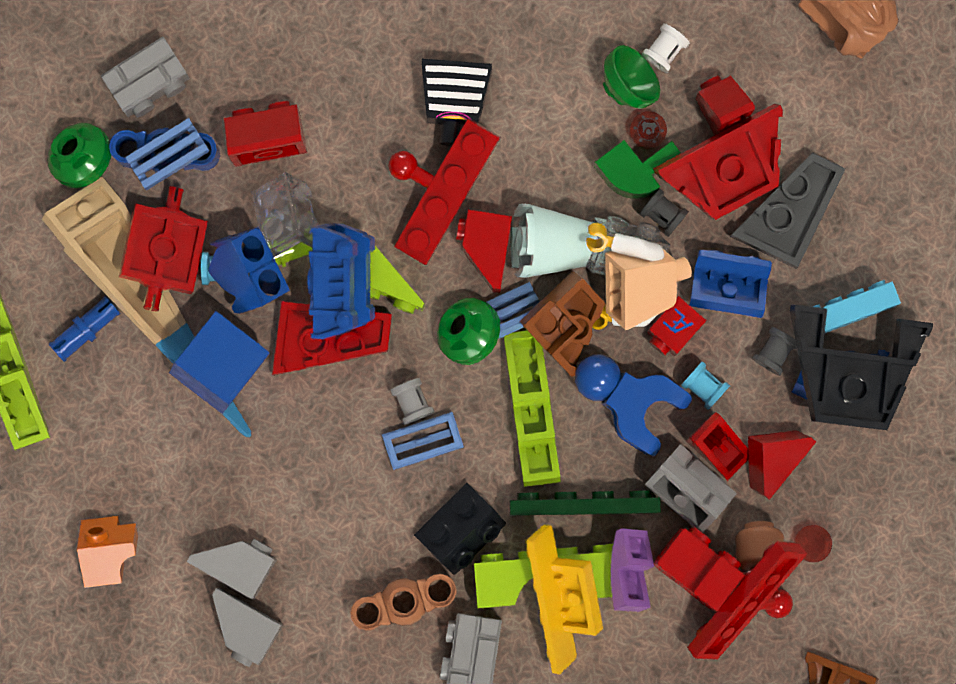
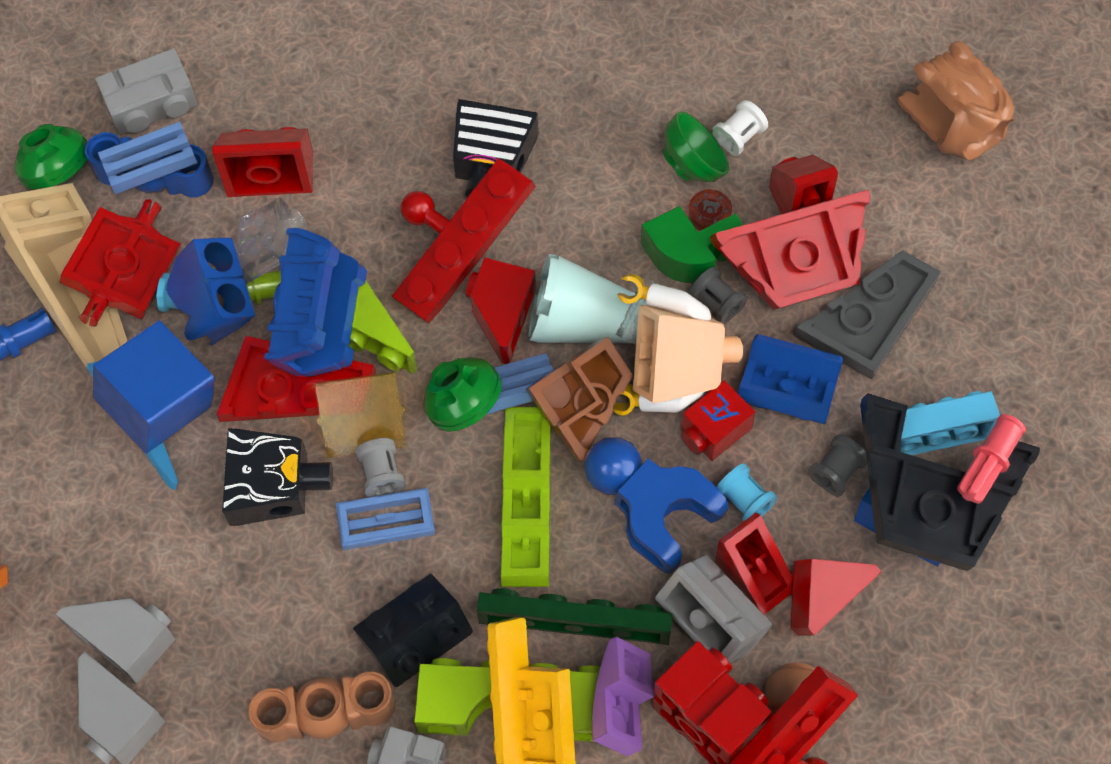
camera: 10 degrees right, 20 degrees down
(325, 421) = (268, 477): none -> black torso
(388, 358) = (360, 412): none -> clear yellow piece
(815, 542) = (870, 709): clear red tile -> none
(895, 344) = (991, 458): none -> coral axle

